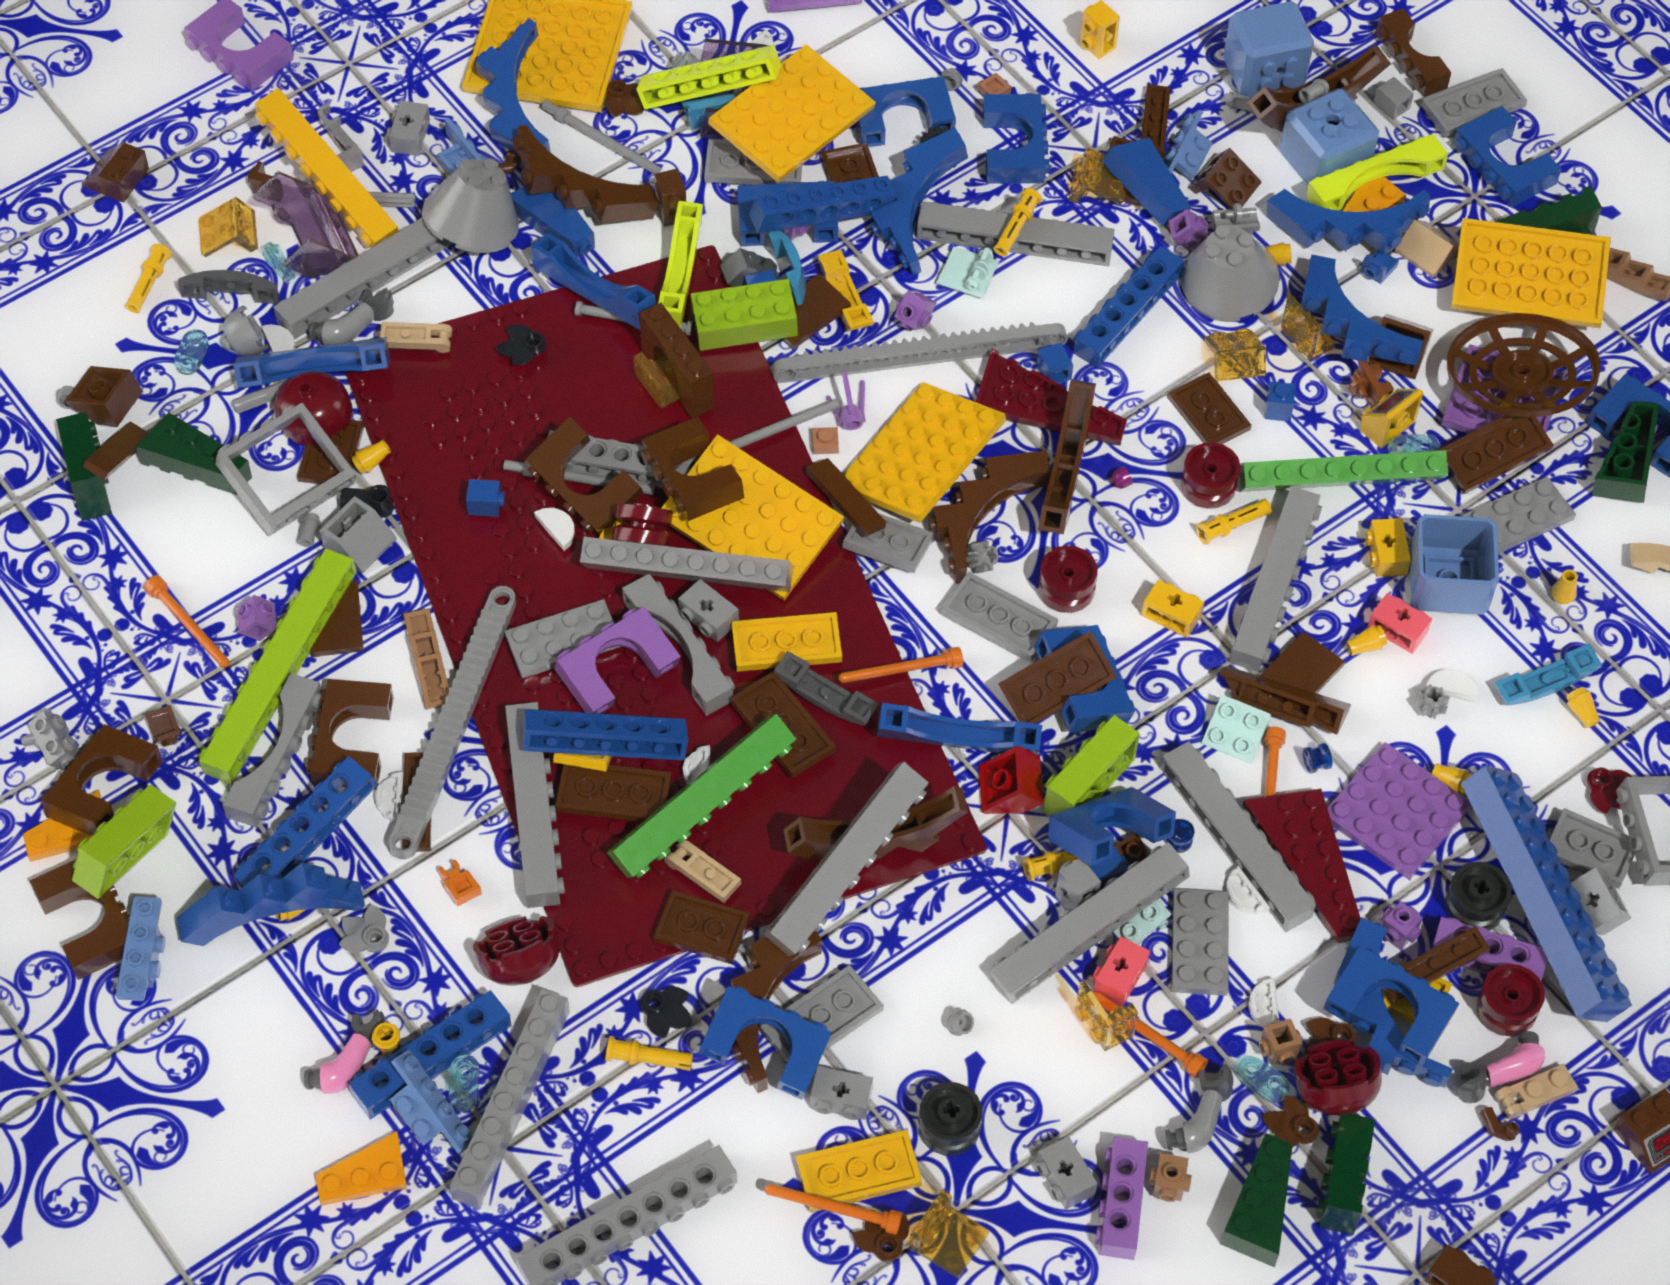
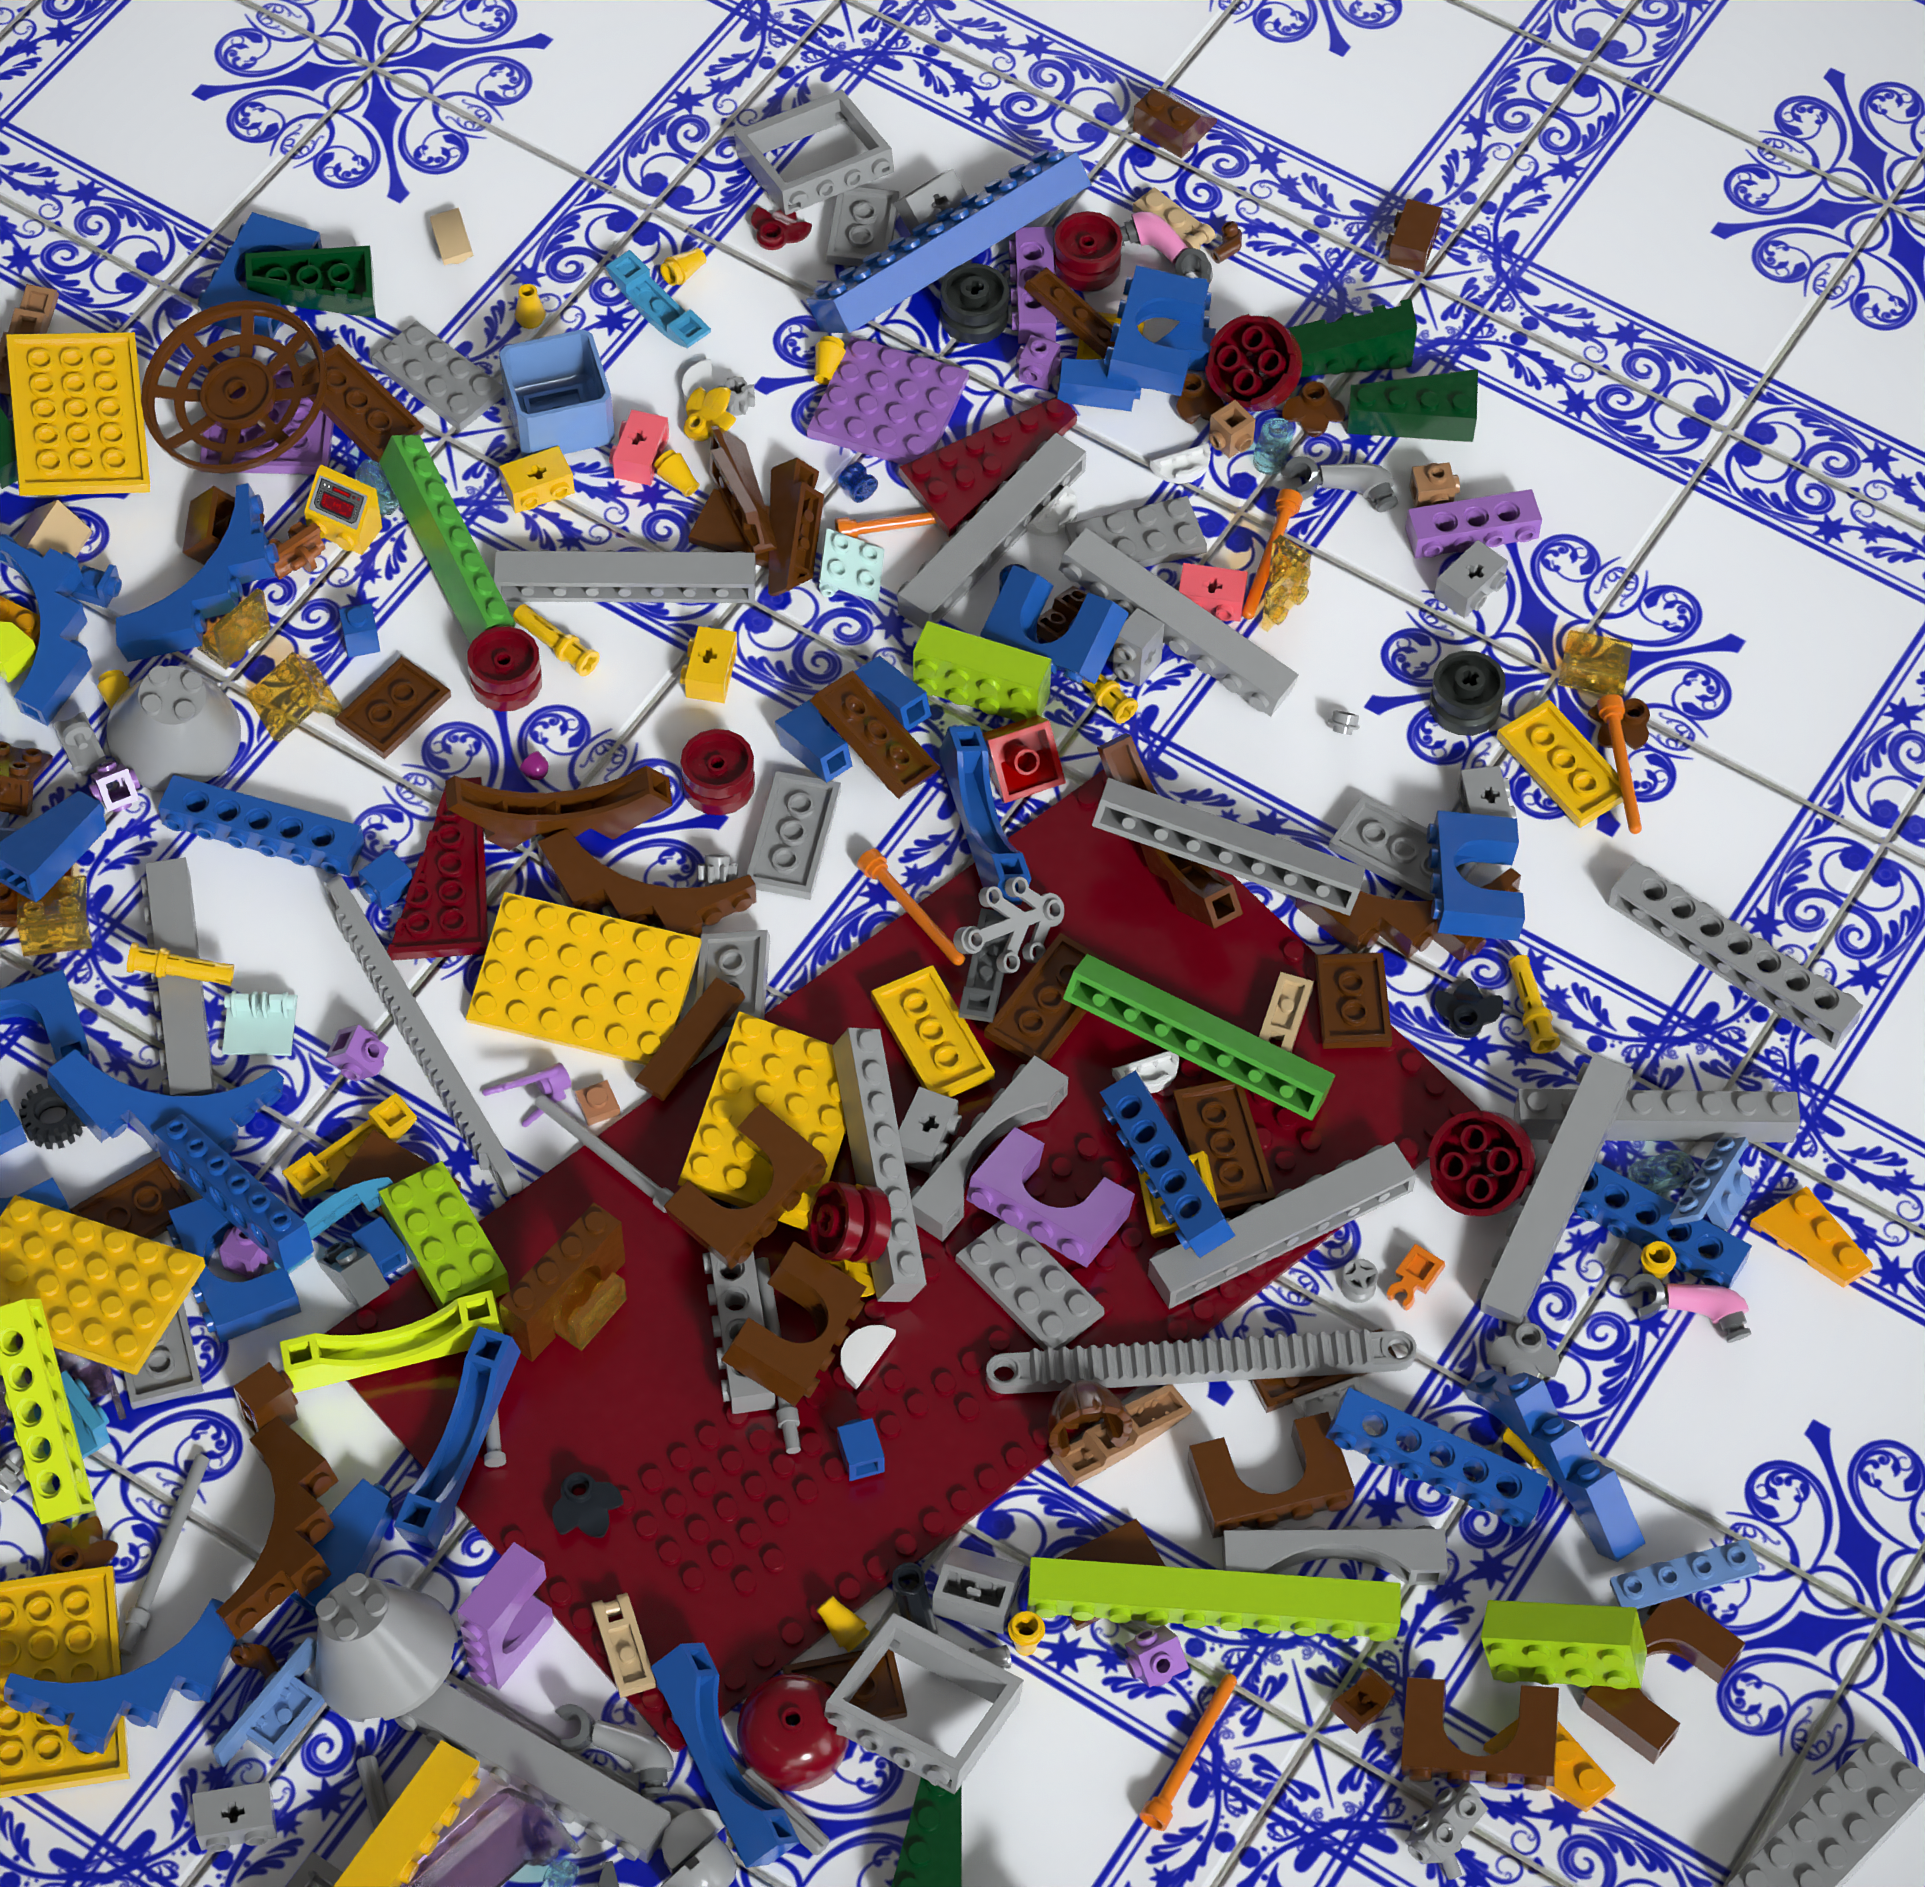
camera: 110 degrees left, 0 degrees up
(308, 547) = (1026, 1632): none -> yellow cone
(442, 625) = (1082, 1406): none -> reddish brown hair
(445, 253) = (503, 1617): none -> medium lavender arch
(470, 839) = (1365, 1274): none -> light grey wheel
(470, 985) = (1555, 1191): none -> light grey brick
(851, 712) = (1015, 924): none -> light grey plant
(1334, 673) = (738, 486): none -> reddish brown wedge
(1412, 671) = (707, 410): none -> yellow plate

